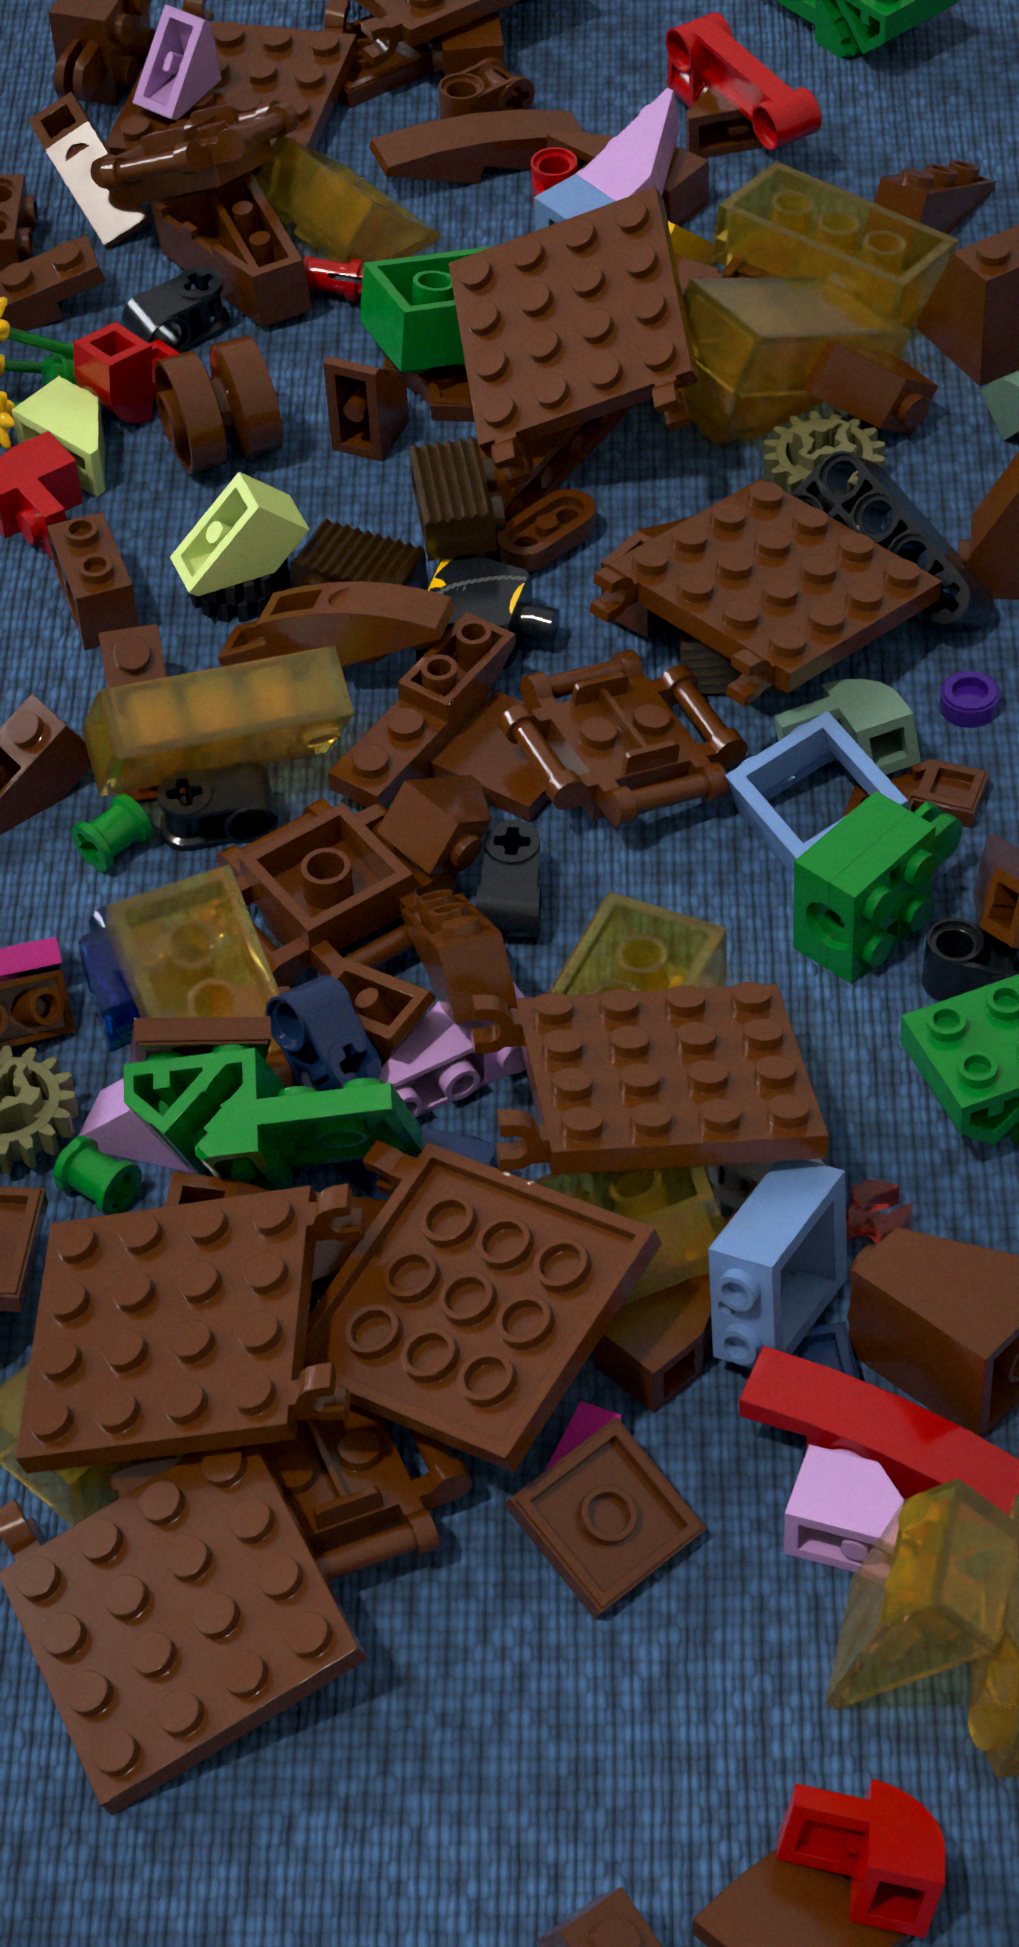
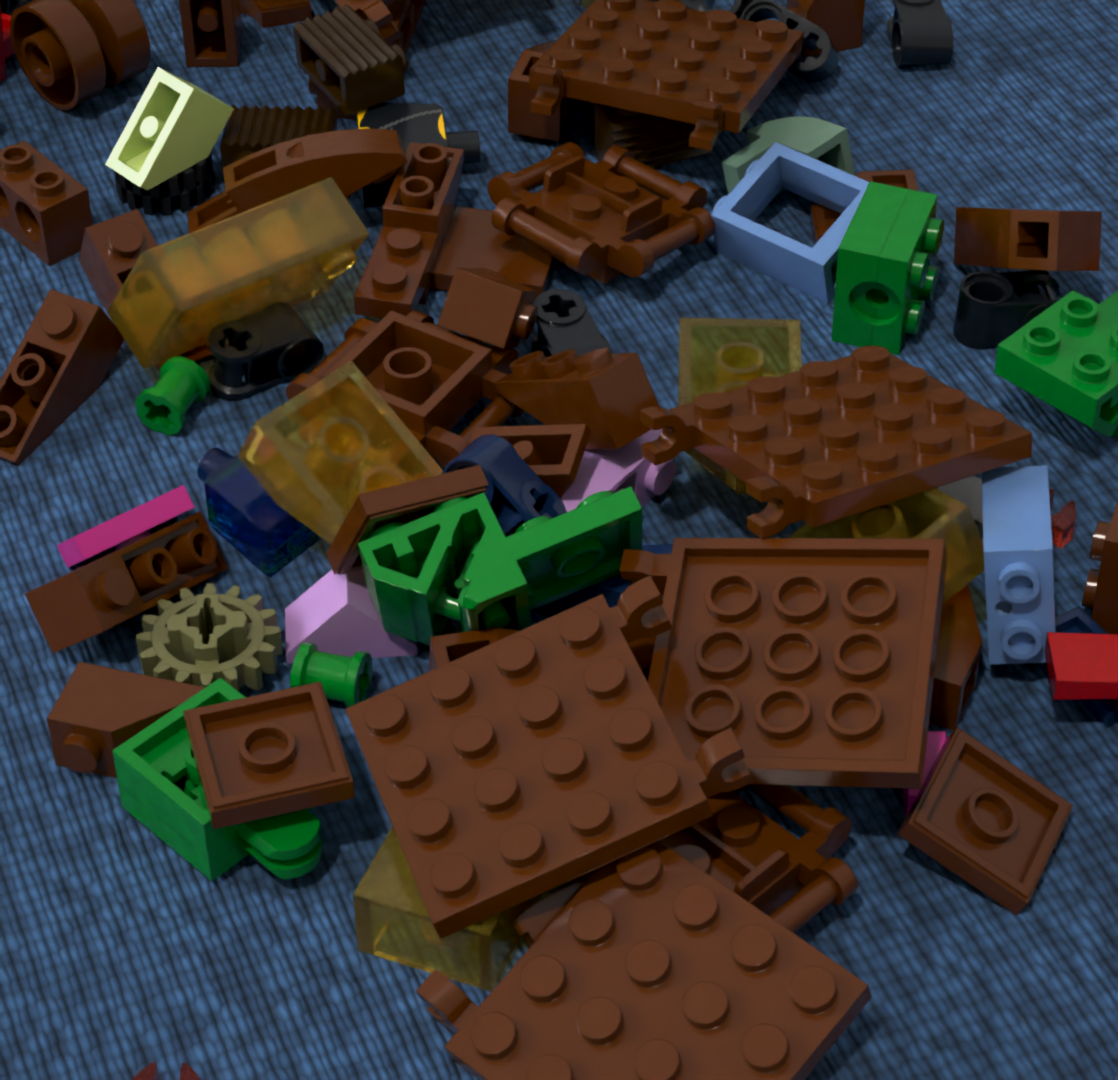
camera: 25 degrees left, 5 degrees down
(547, 529) = (431, 74): reddish brown plate -> none
(969, 699) = (863, 123): dark purple tile -> none

